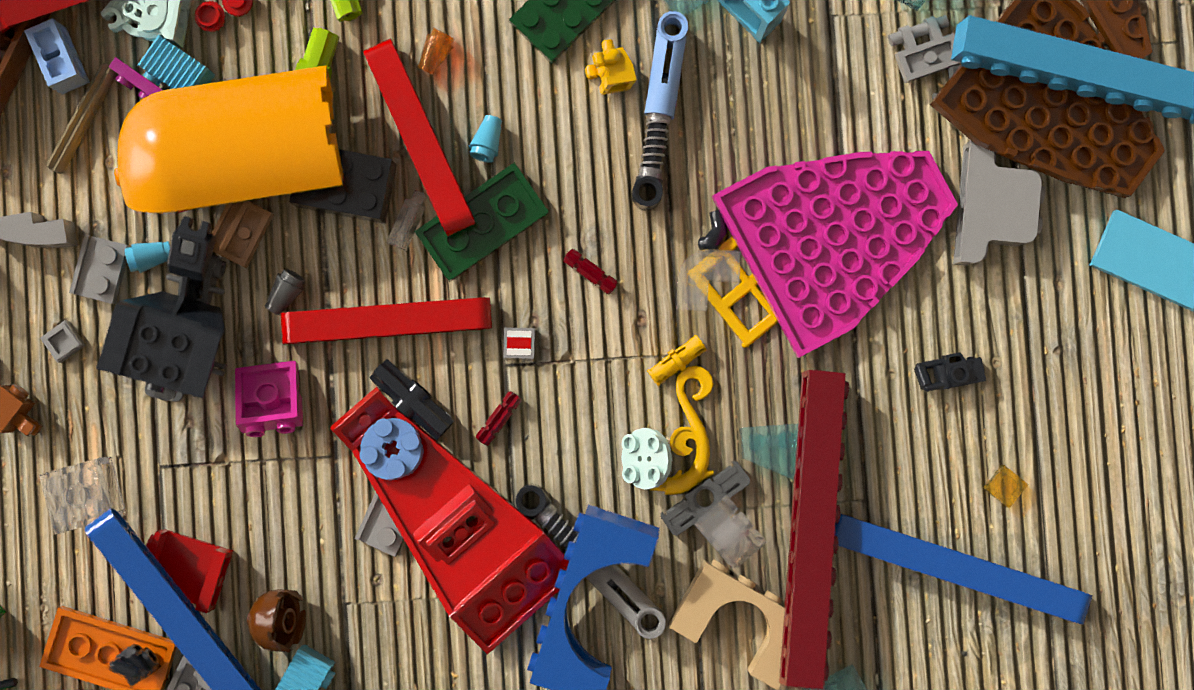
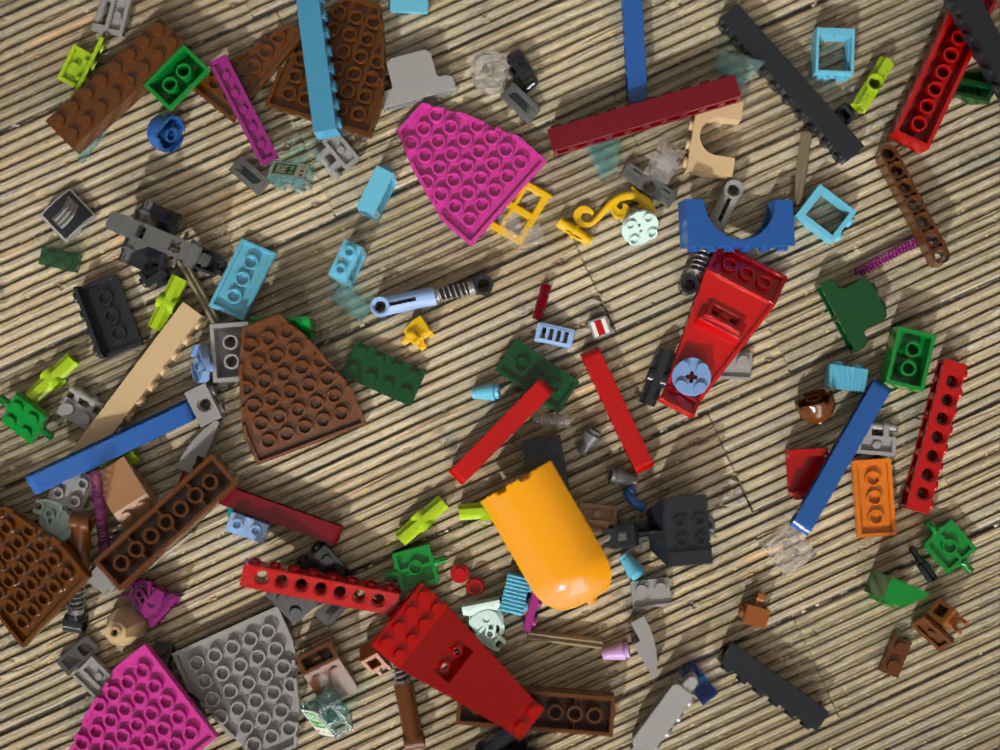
camera: 110 degrees left, 0 degrees up
(33, 186) = (617, 651): none -> lavender cone
(56, 56) = (535, 666): light blue brick -> none
(62, 341) = (701, 598): light grey tile -> none
(135, 664) = (873, 475): black piece -> none
(242, 293) = (633, 501): none -> blue arm
(268, 398) = (689, 461): dark pink plate -> none
(358, 263) = (589, 440): none -> dark grey cone
(435, 50) = (443, 442): clear orange cone -> none
(498, 418) = (648, 322): dark red axle -> none
(542, 277) = (540, 326): none -> light blue slope
(716, 235) = (492, 235): black arm -> none
(843, 84) = (377, 193): none -> medium azure window
(902, 352) = (520, 103): none -> dark grey slope
(983, 318) = (485, 62): none -> clear brick
(1005, 486) = (575, 16): clear yellow tile -> none

